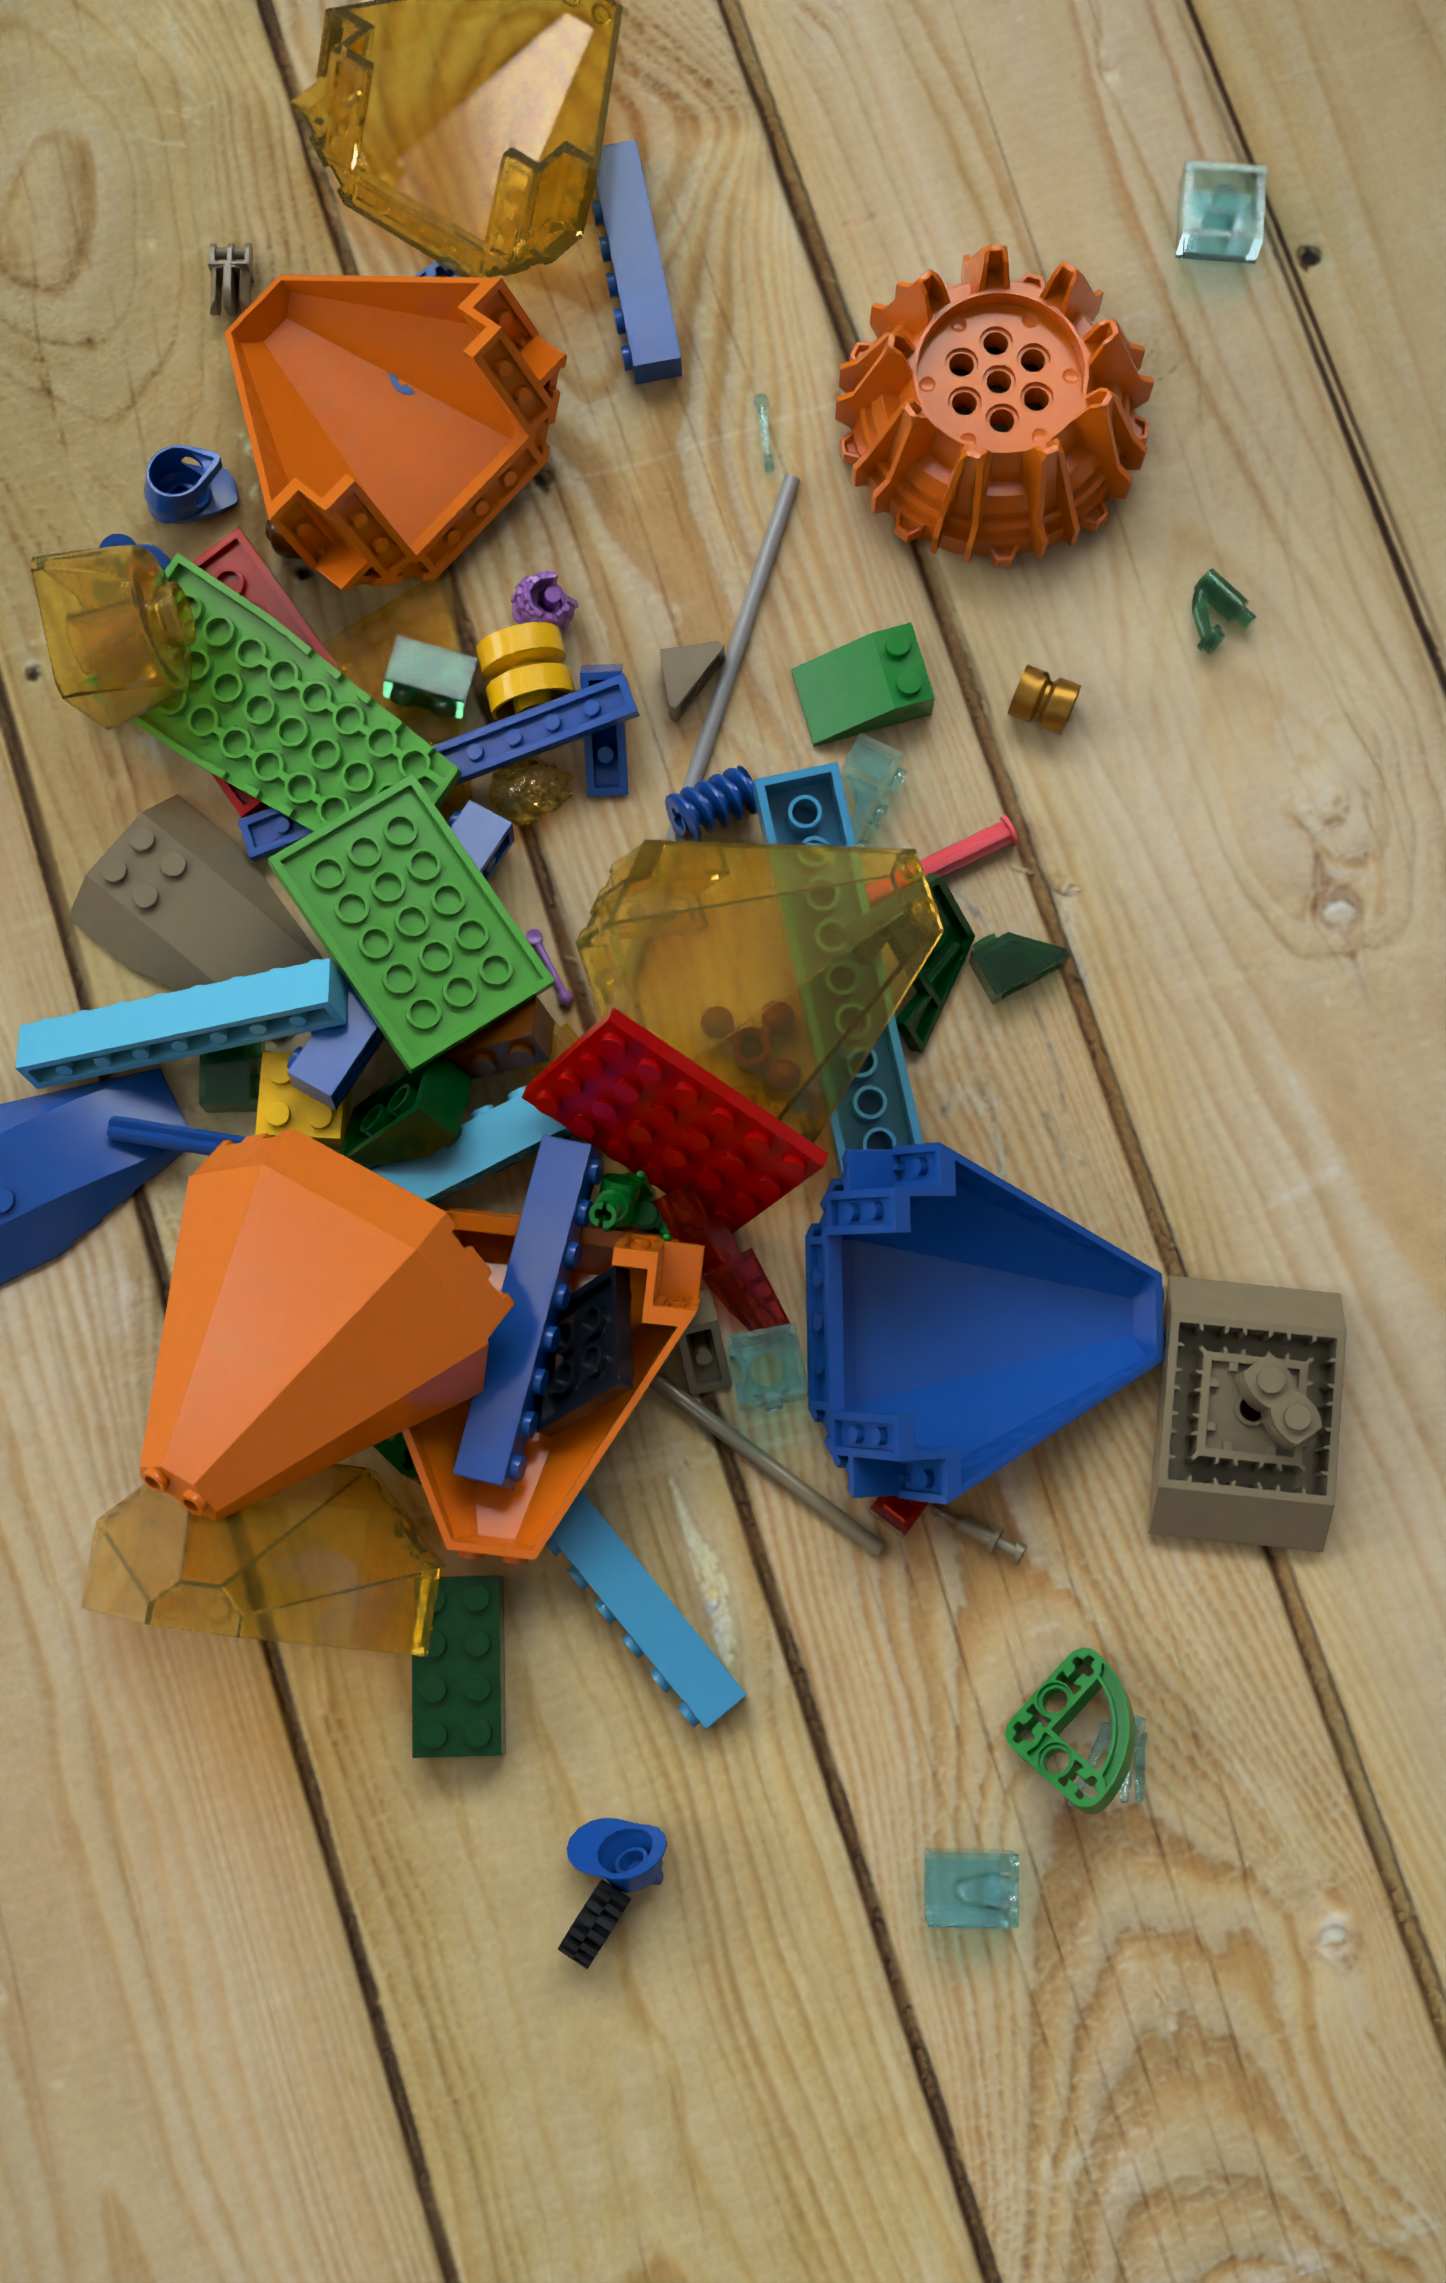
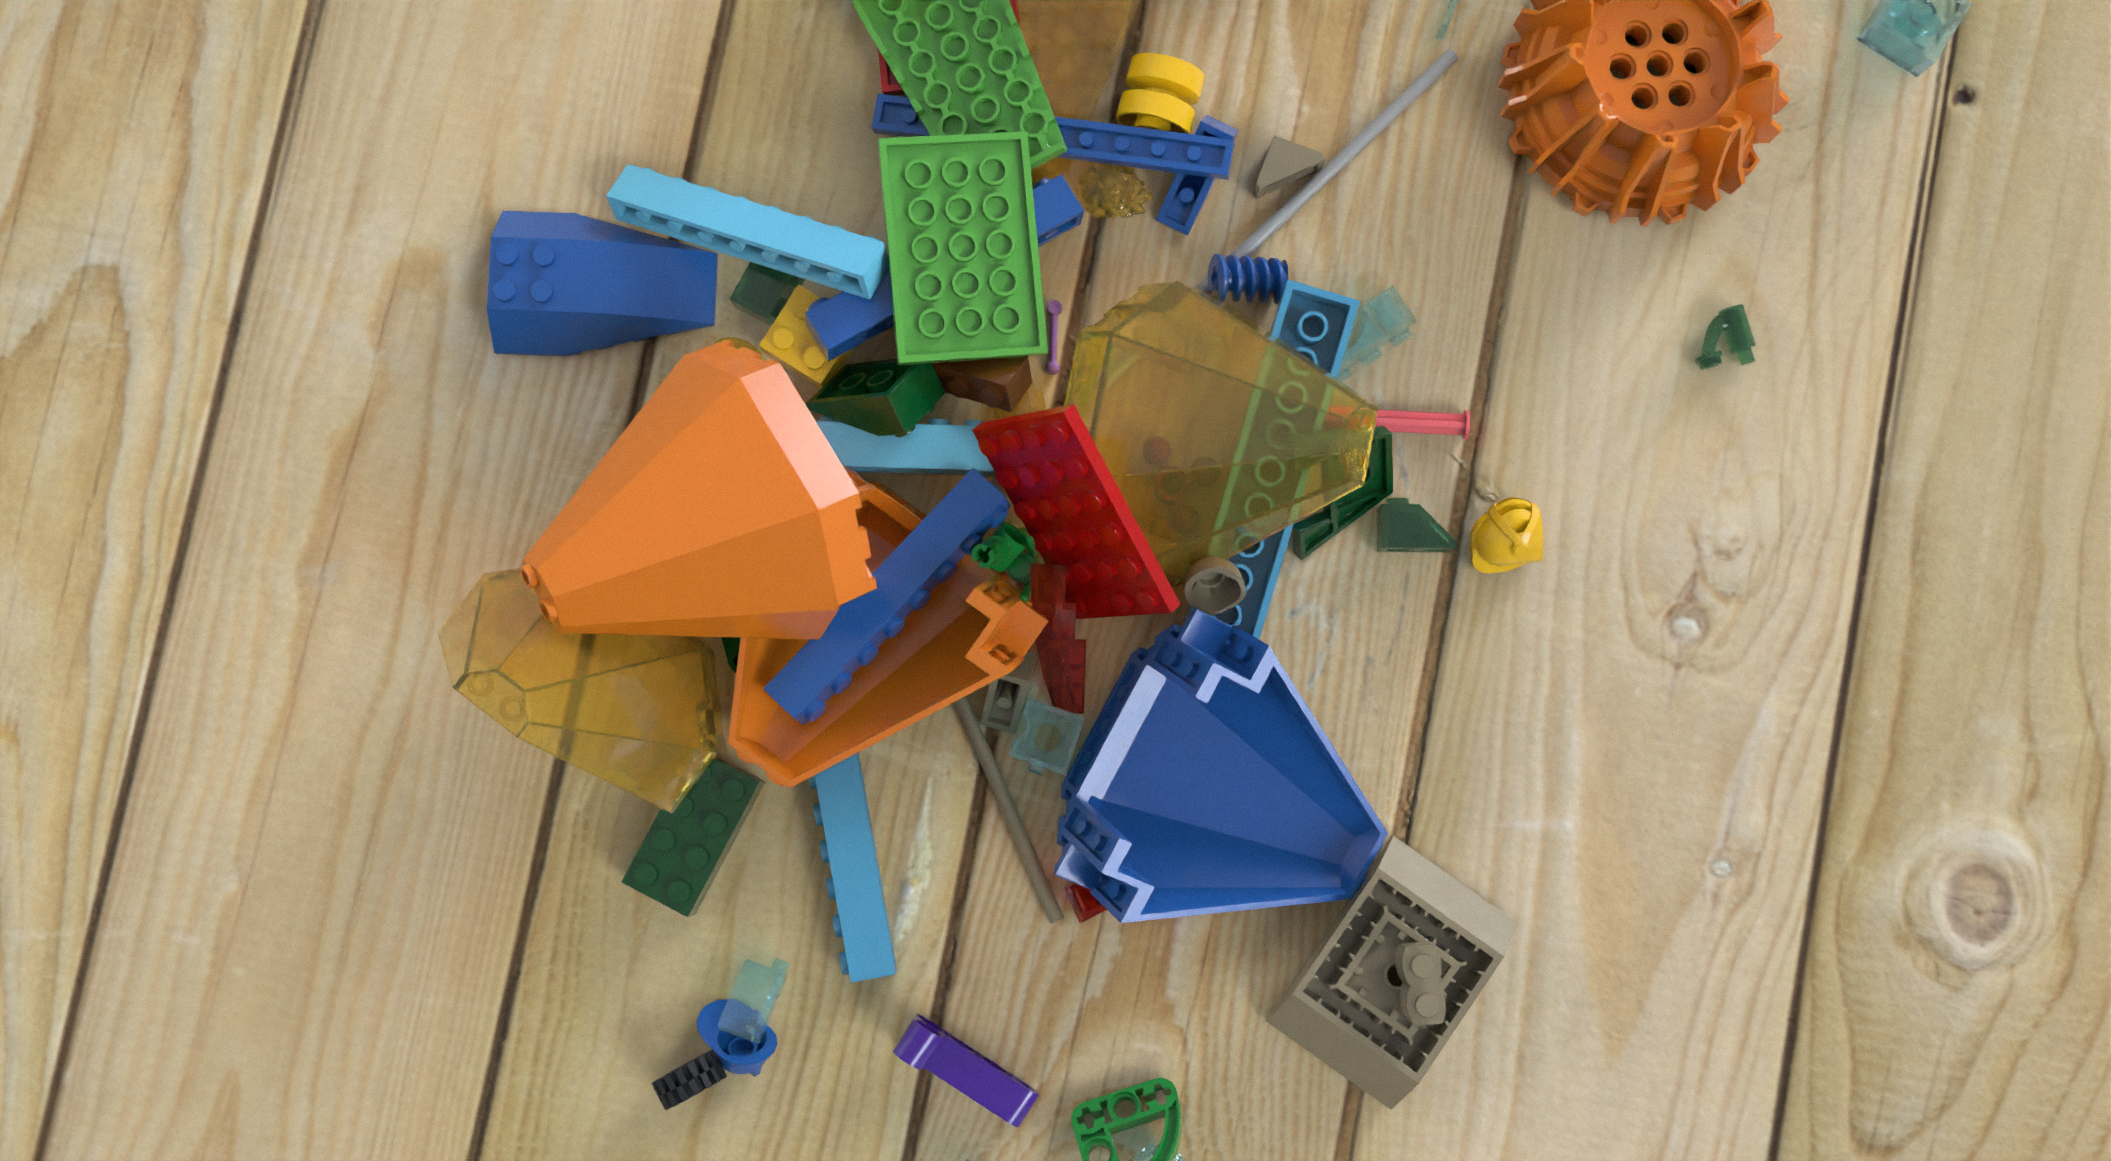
camera: 25 degrees right, 5 degrees up
(166, 1135) = (698, 314): blue axle -> none
(186, 903) = (806, 139): dark tan wedge -> none
(429, 677) = (1083, 61): clear green brick -> none
(542, 600) = (1204, 48): medium lavender piece -> none
(592, 1352) = (918, 656): black plate -> none
(615, 1804) = (753, 999): none -> clear light blue panel
(862, 1120) = (1214, 585): none -> dark tan helmet
(864, 685) = (1417, 249): green slope -> none
(874, 1754) = (966, 1070): none -> dark purple beam
(982, 1534) = (1143, 955): dark tan piece -> none
(1044, 699) = (1550, 336): pearl gold wheel -> none
(1113, 917) = (1507, 536): none -> yellow helmet

